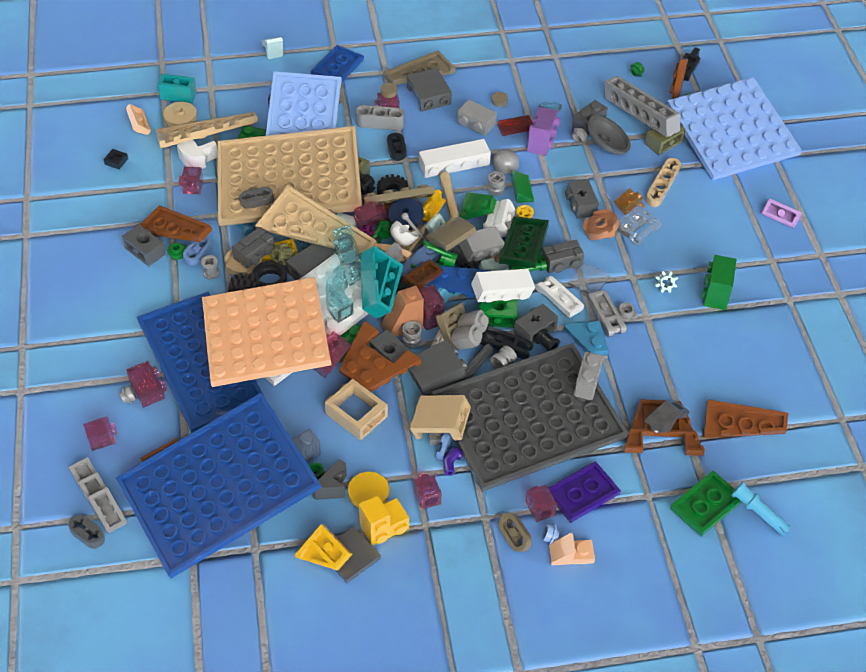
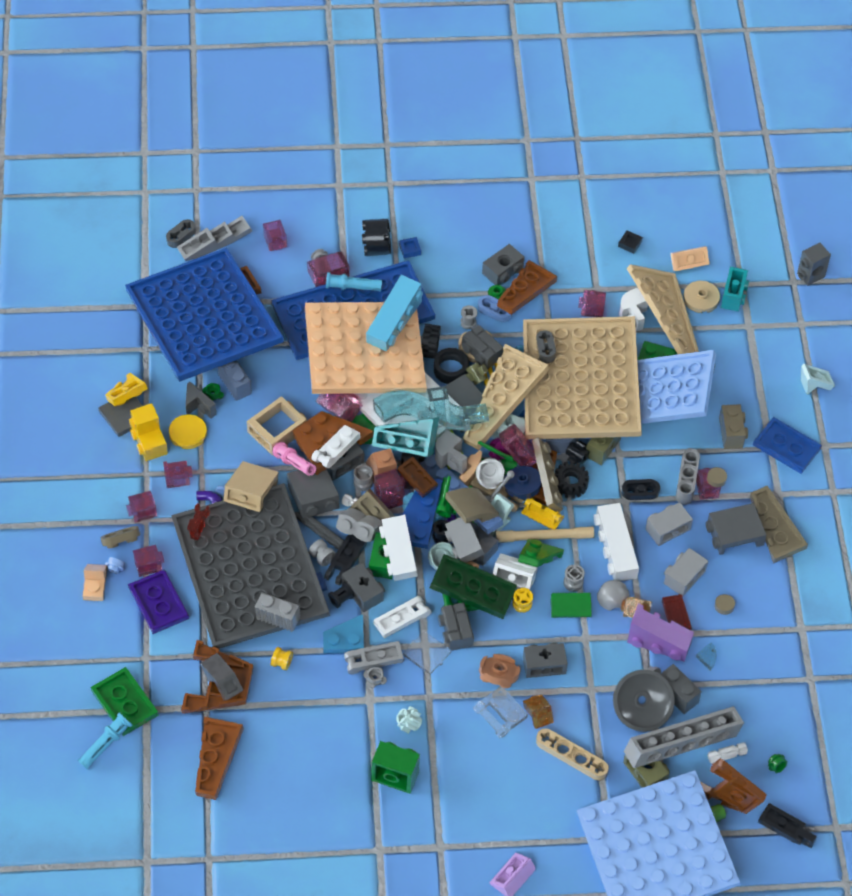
camera: 95 degrees right, 5 degrees up
(108, 340) = (376, 237): none -> black brick
(117, 319) = (410, 247): none -> blue plate
(151, 40) = (813, 264): none -> dark grey brick
(171, 361) = (344, 282): none -> medium azure pin
(232, 296) = (395, 313): none -> medium azure wedge
(391, 343) = (336, 446): none -> white plate
(397, 390) = (290, 456): none -> bright pink pin
(430, 128) = (669, 523): none -> light grey brick
(474, 517) = (141, 506): none -> clear pink brick
(497, 455) = (197, 524): none -> clear red plate
(518, 144) = (630, 604): none -> clear orange bracket
(627, 379) = (281, 658): none -> yellow wheel

